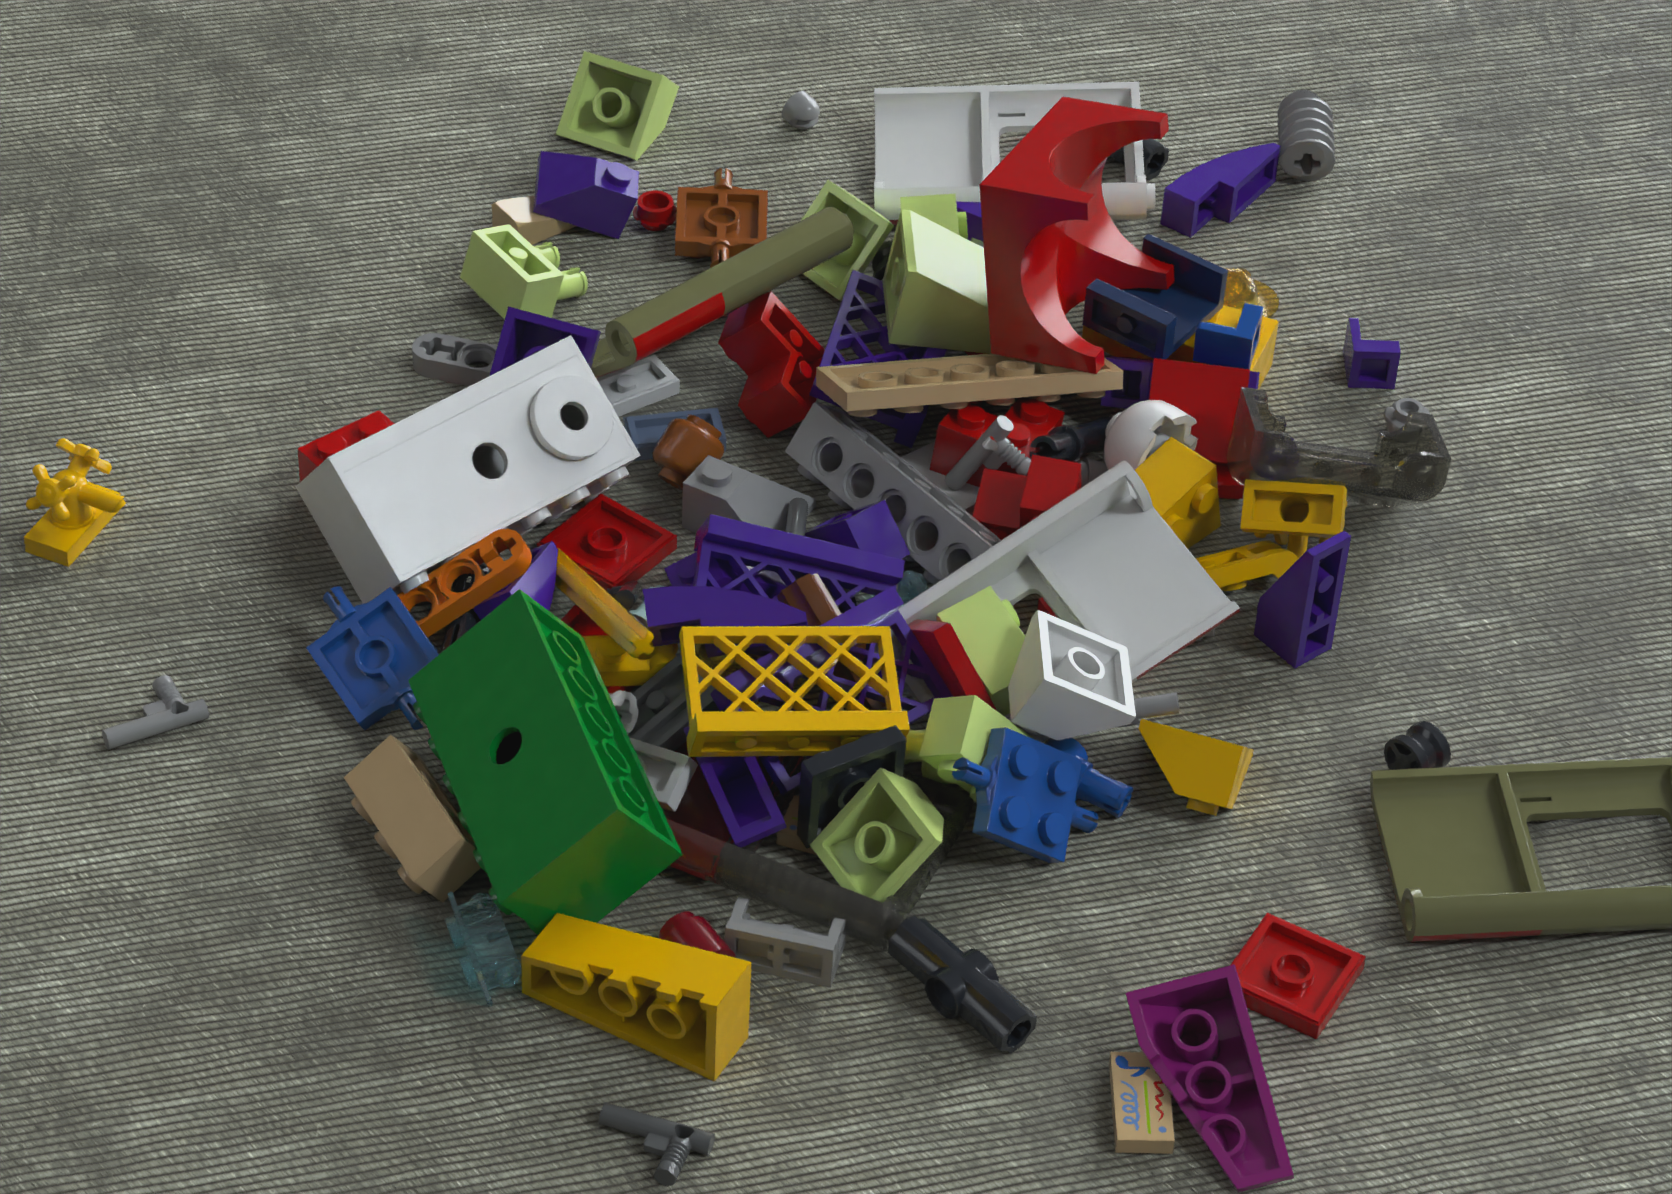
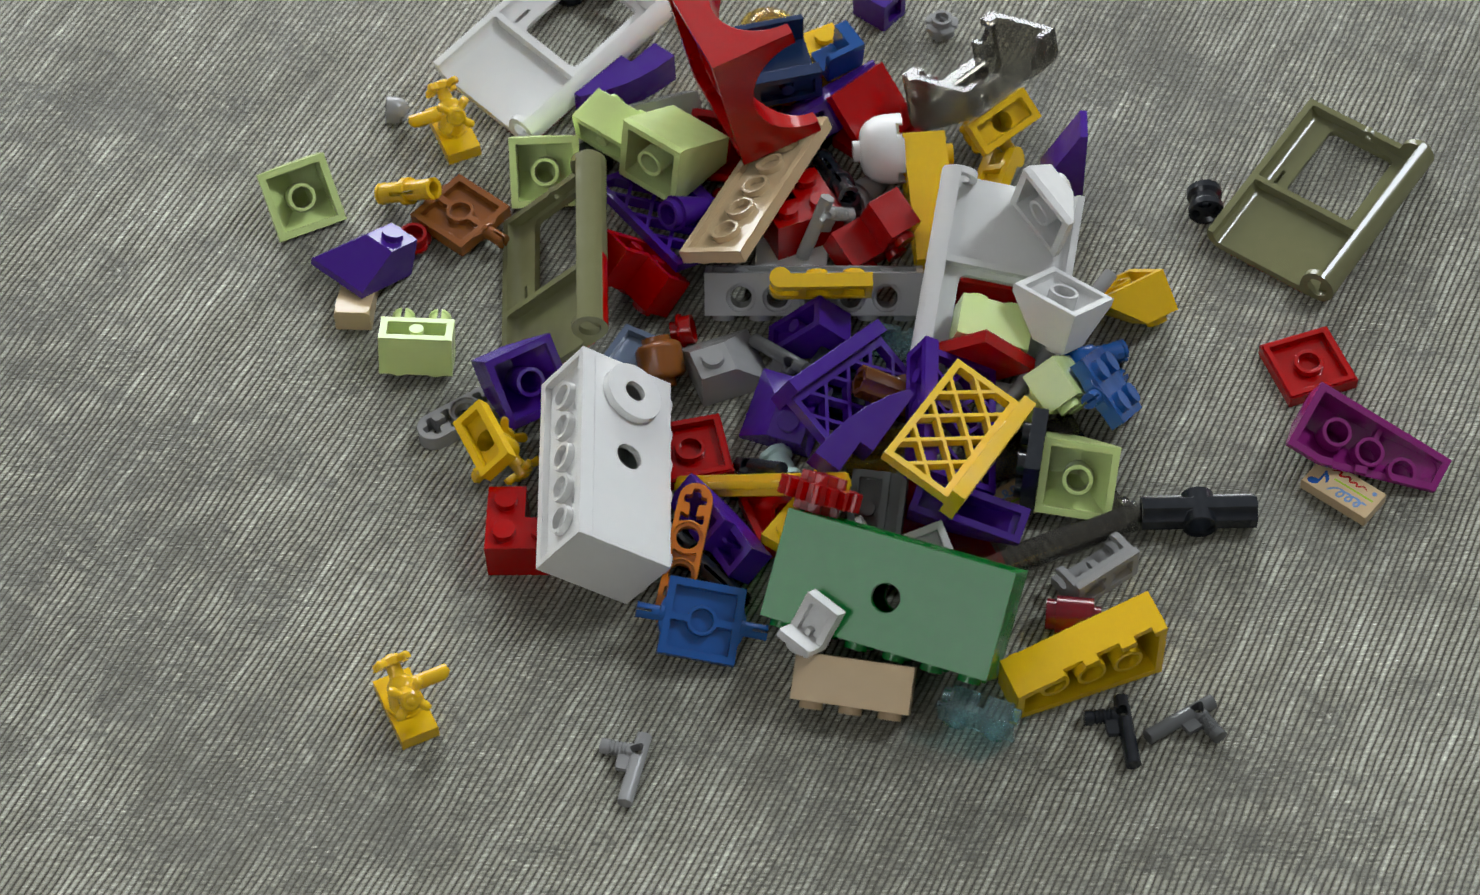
camera: 45 degrees left, 10 degrees up
(416, 722) = (812, 625): none -> white bracket
(426, 373) = (492, 445): none -> yellow piece
(581, 614) = (820, 493): none -> red gear
(591, 1079) = (1116, 726): none -> black hose
(703, 160) = (415, 190): none -> yellow pin
(756, 452) = (683, 329): none -> red plate
(830, 151) = (449, 122): none -> yellow piece
(882, 344) = (682, 211): none -> dark purple cone
(920, 510) = (817, 281): none -> yellow plate
(1180, 572) = (1046, 204): none -> white slope

